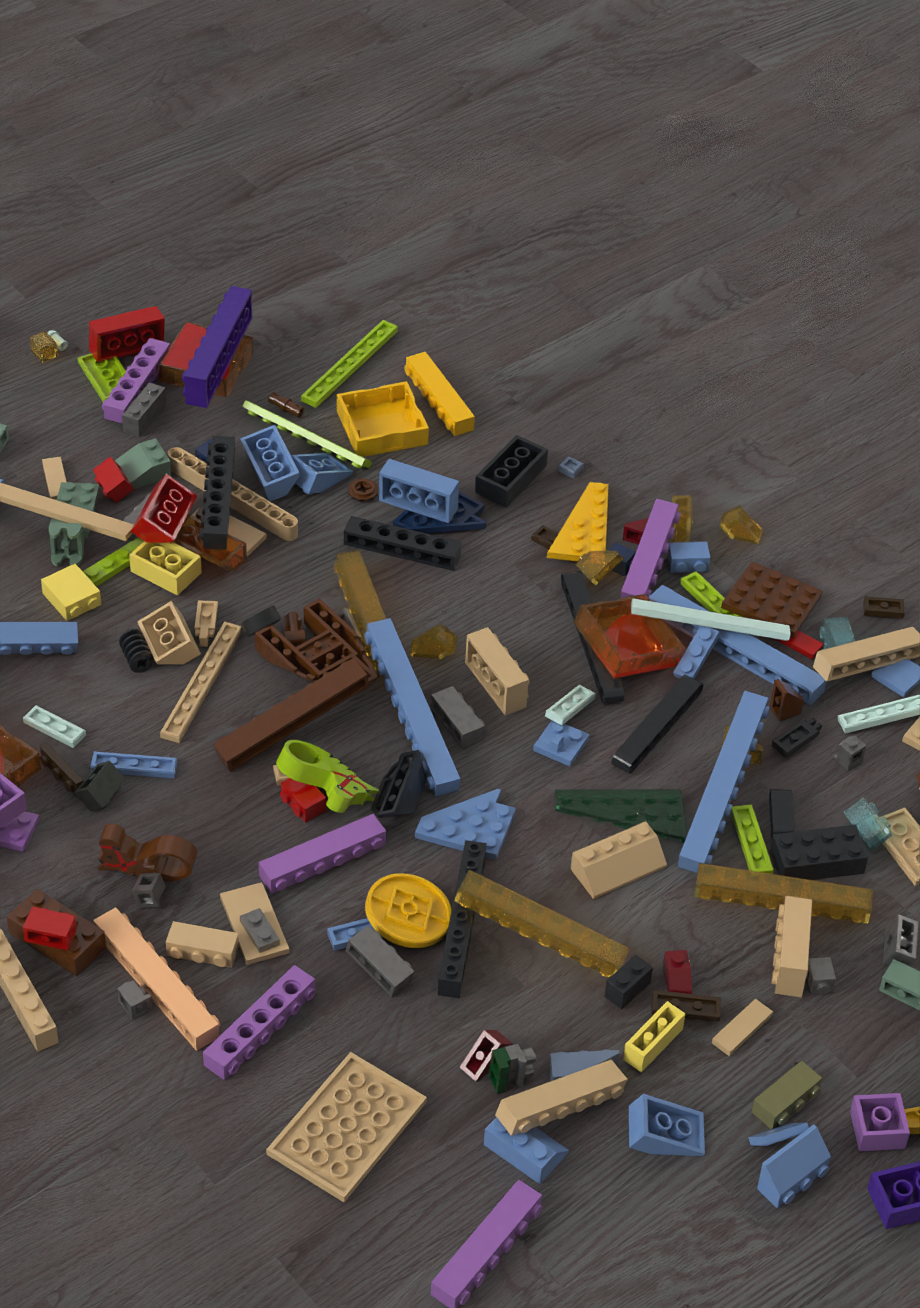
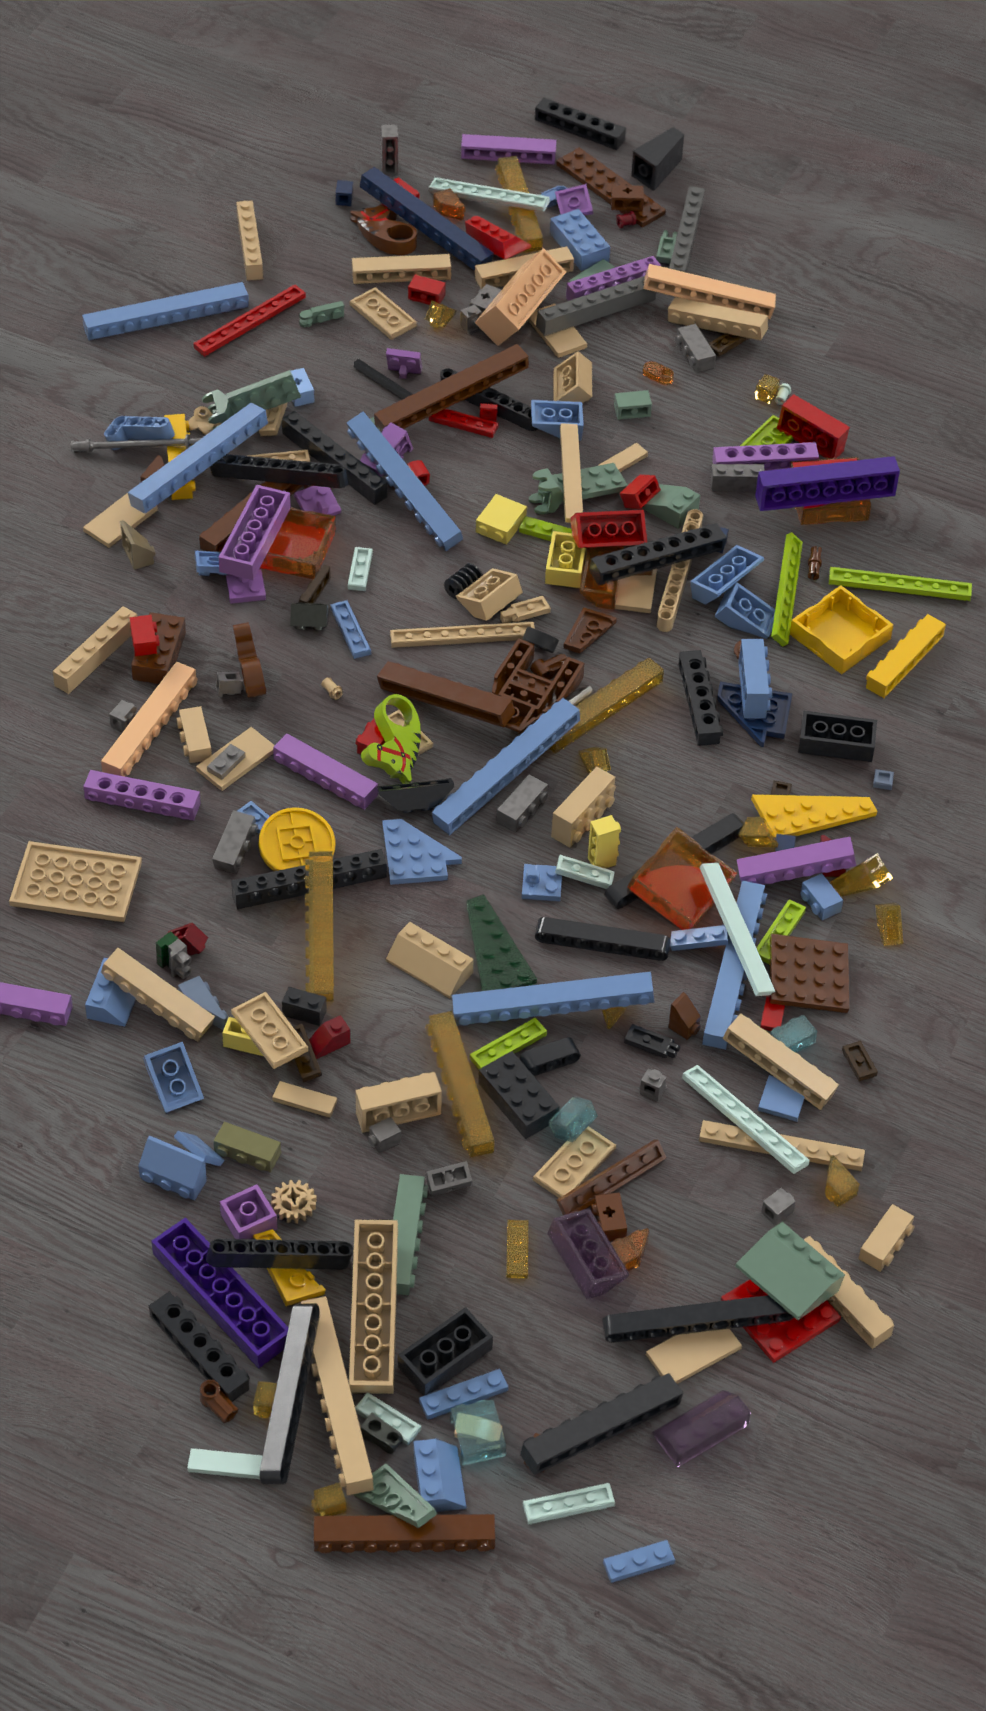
camera: 65 degrees right, 5 degrees up
(209, 807) = (335, 691): none -> tan pin
(261, 586) = (587, 629): none -> reddish brown wing
(558, 669) = (604, 842): none -> light yellow brick
(662, 1013) = (269, 1030): none -> tan tile
(871, 1077) = (303, 1198): none -> tan gear

